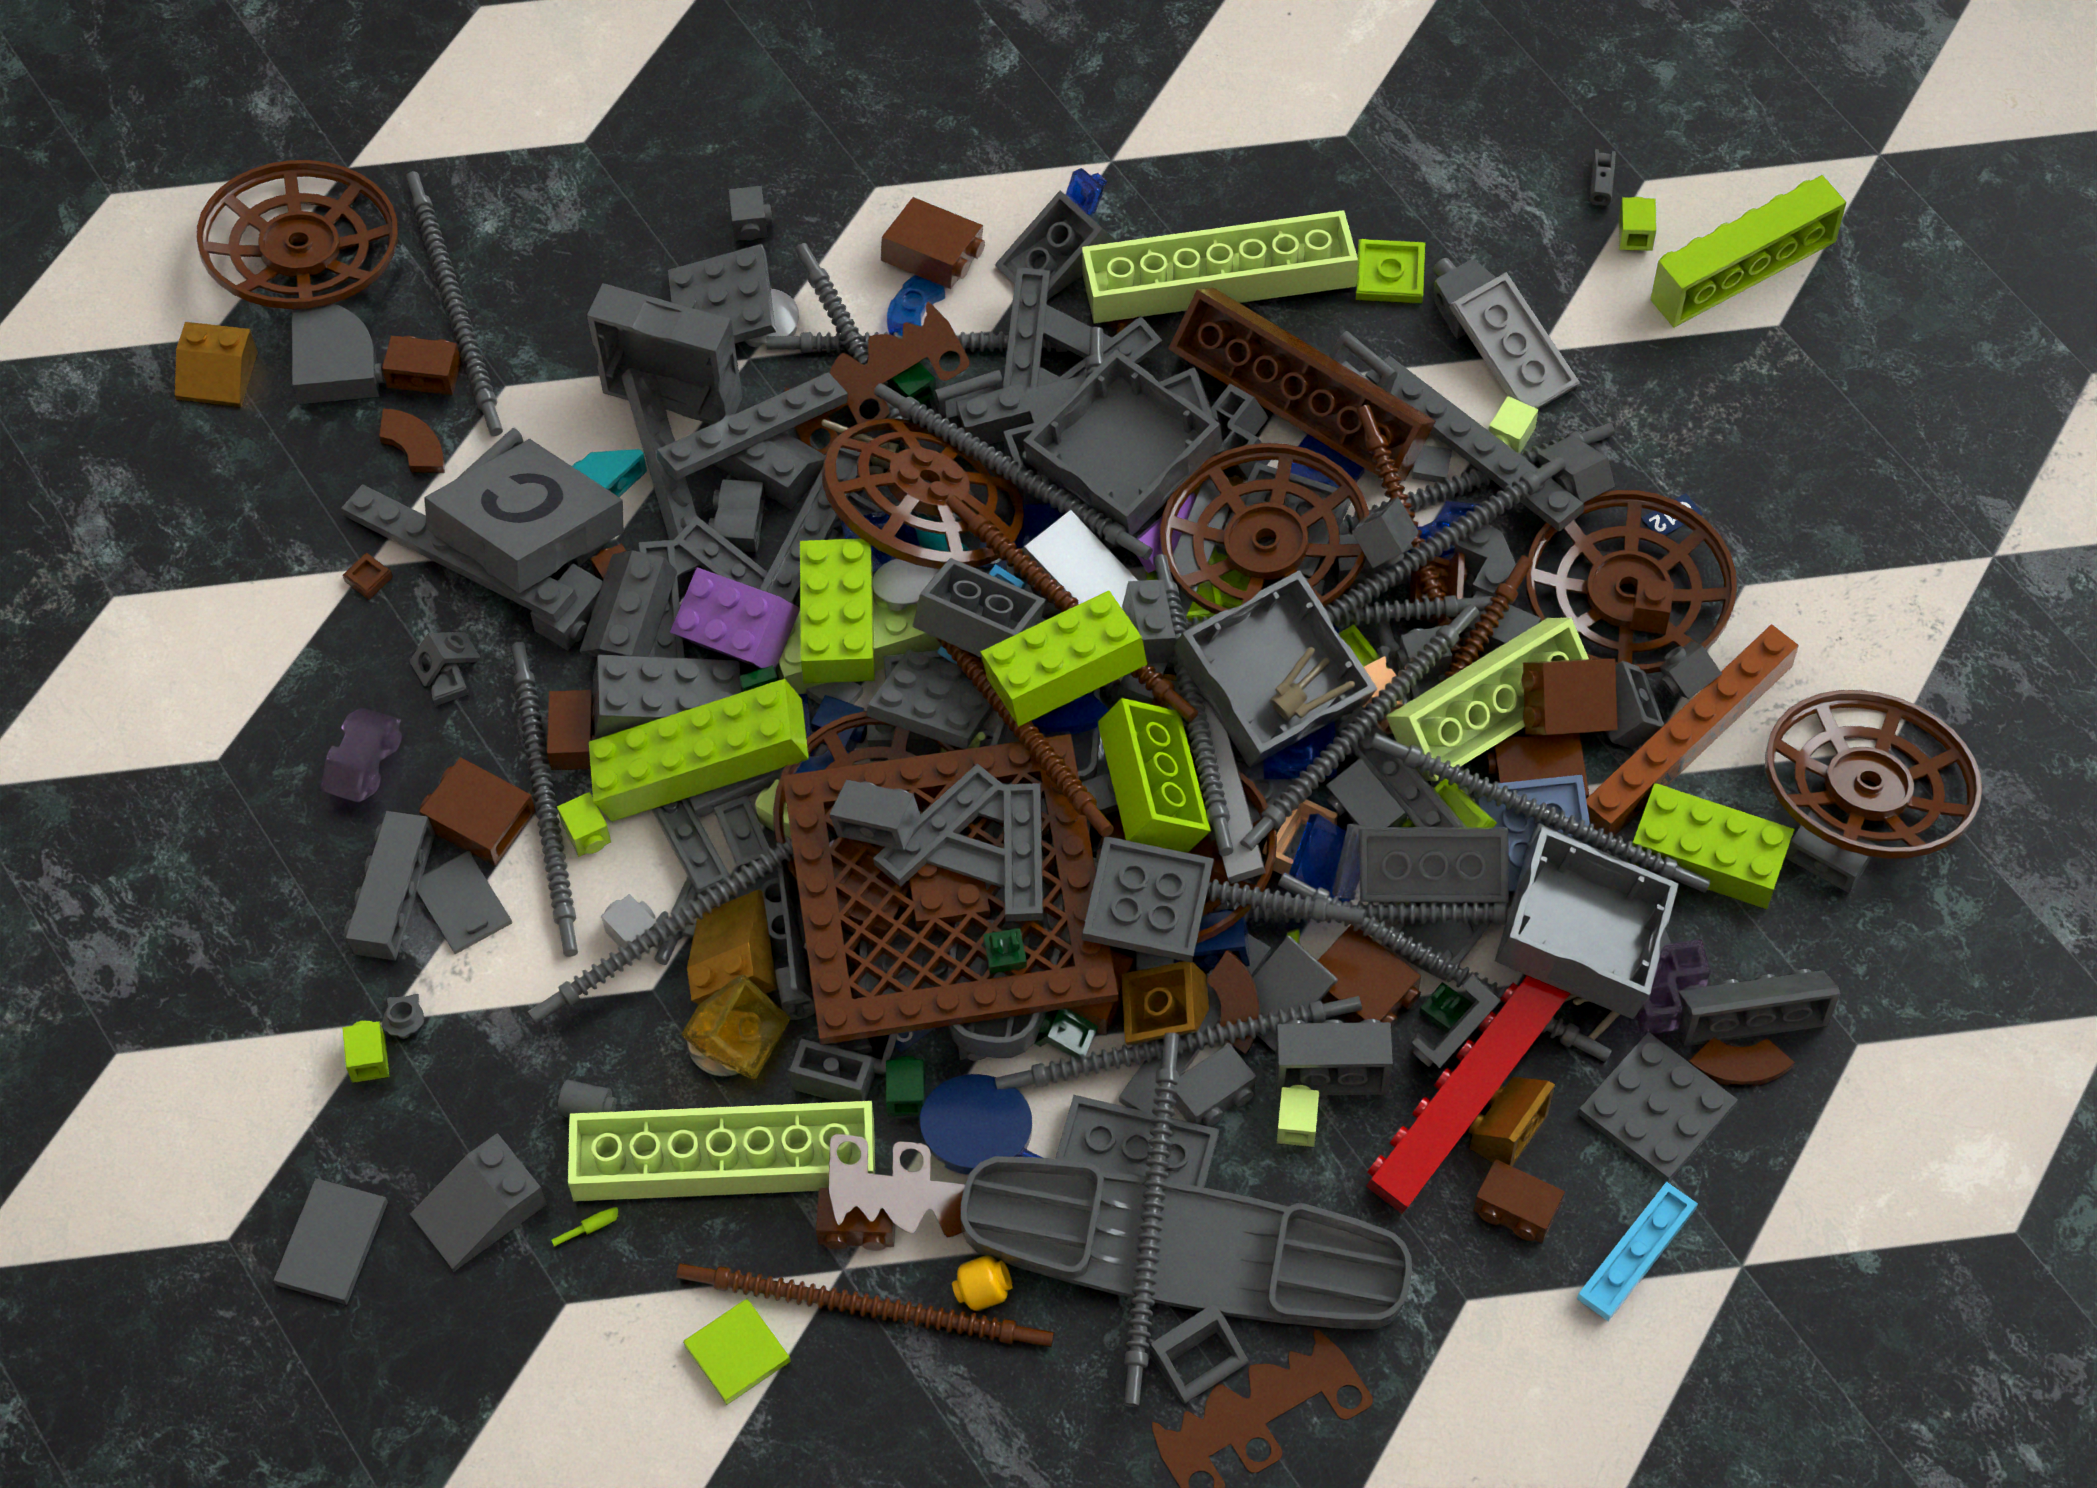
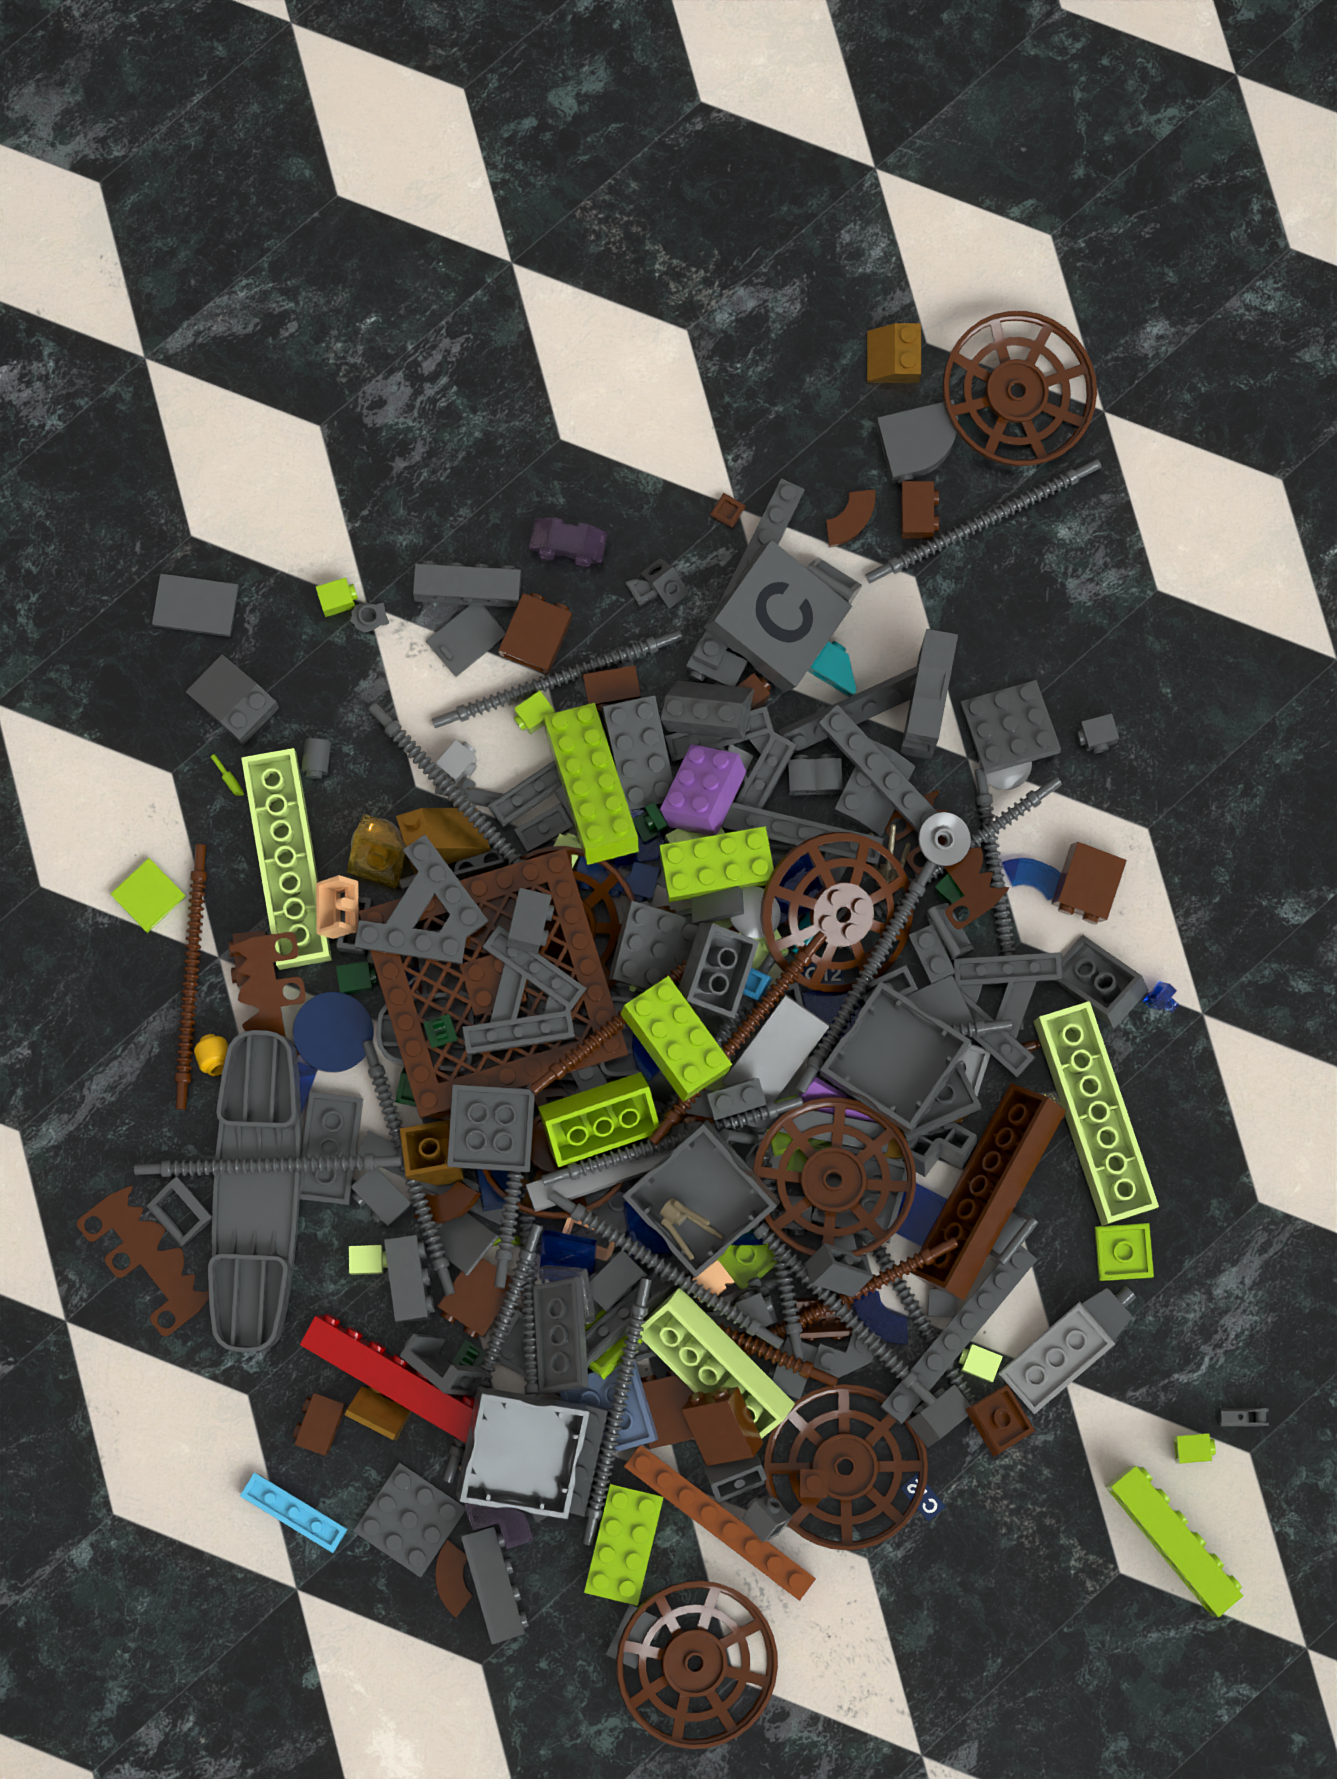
camera: 80 degrees right, 20 degrees up
(794, 1091) = (330, 906): none -> light nougat window
(799, 930) = (398, 933): none -> dark grey plate
(851, 369) = (955, 834): none -> light grey dish
(891, 616) = (717, 905): none -> dark grey tile
(1585, 412) = (1000, 1420): none -> reddish brown tile

